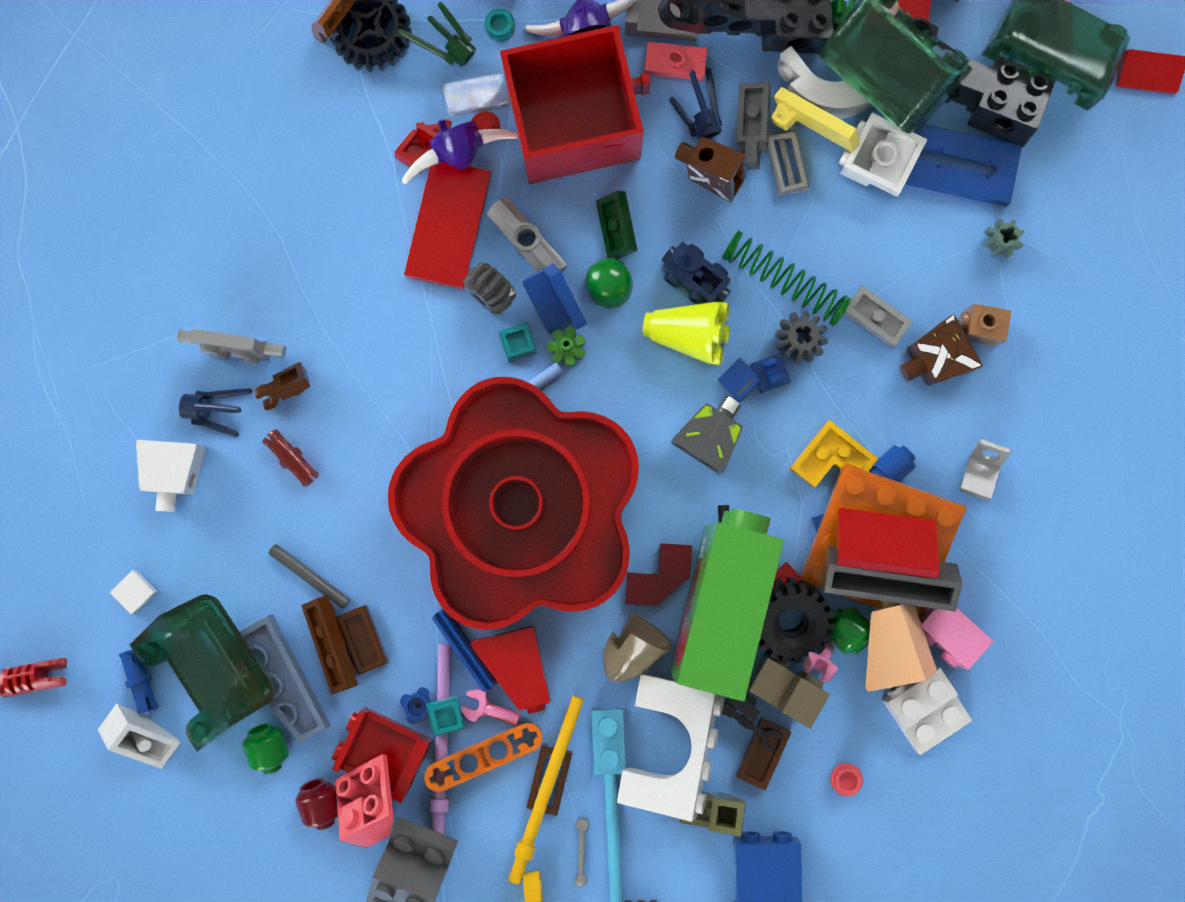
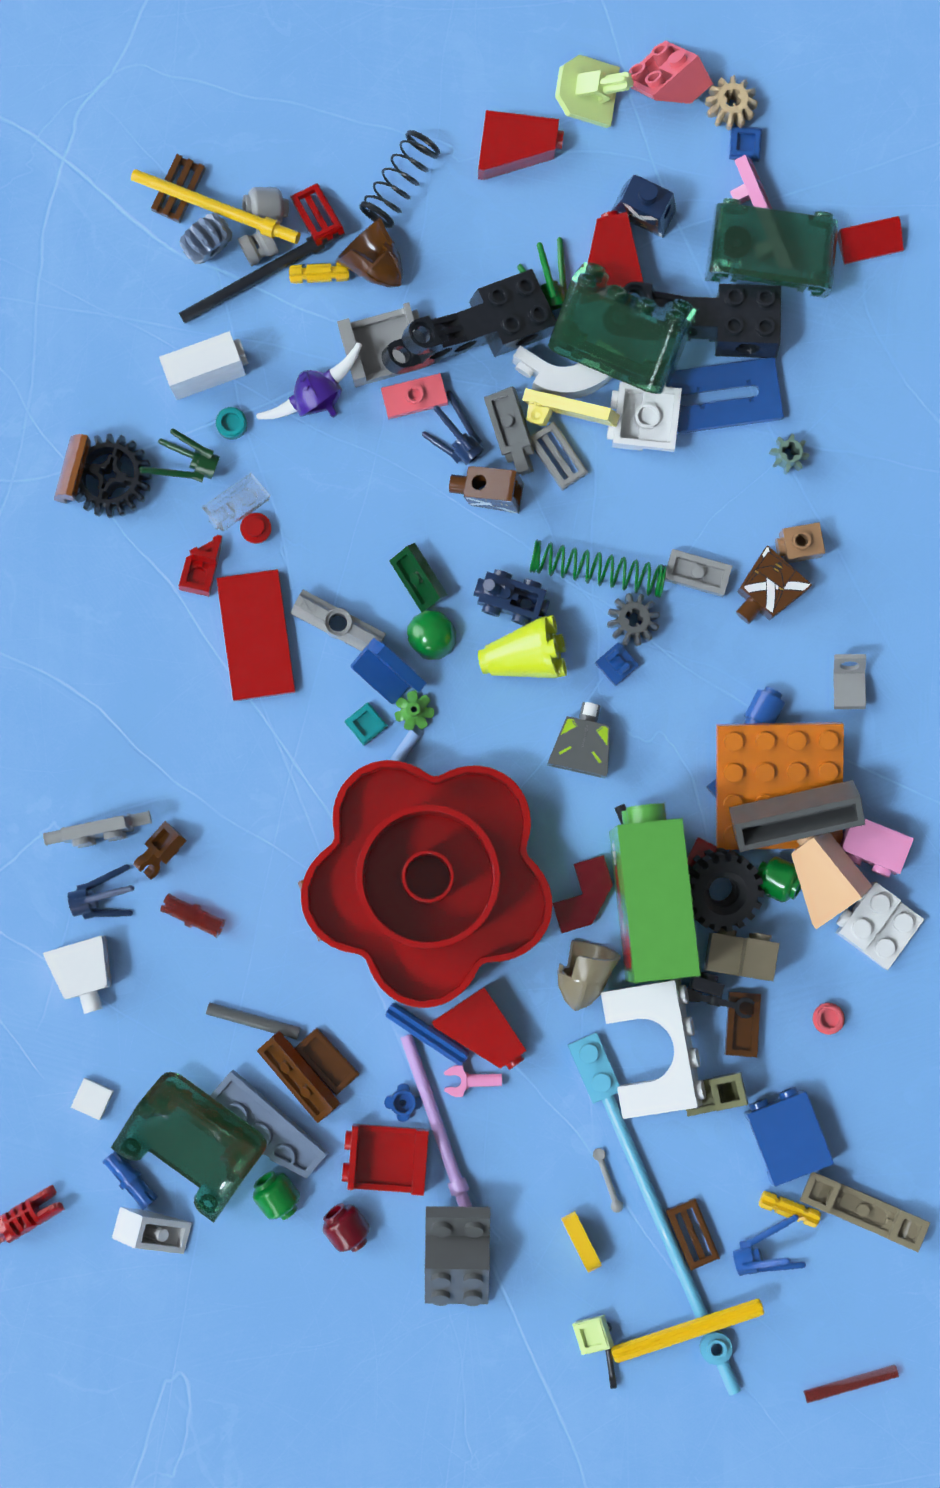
camera: 25 degrees left, 0 degrees up
(365, 803) = (391, 1208): coral slope -> none
(445, 716) = (433, 1101): teal tile -> none
(456, 146) = (237, 560): dark purple helmet -> none
(485, 761) = (485, 1128): orange beam -> none
(489, 288) = (321, 683): dark grey gear -> none
(525, 848) = (554, 1195): yellow bar -> none
(545, 749) = (552, 1124): reddish brown tile -> none
(574, 103) = (336, 480): red piece -> none
(740, 379) = (590, 681): blue tile -> none
(821, 662) = (763, 918): bright pink bar -> none
(830, 448) = (698, 715): yellow plate -> none
(887, 543) = (780, 784): red tile -> none

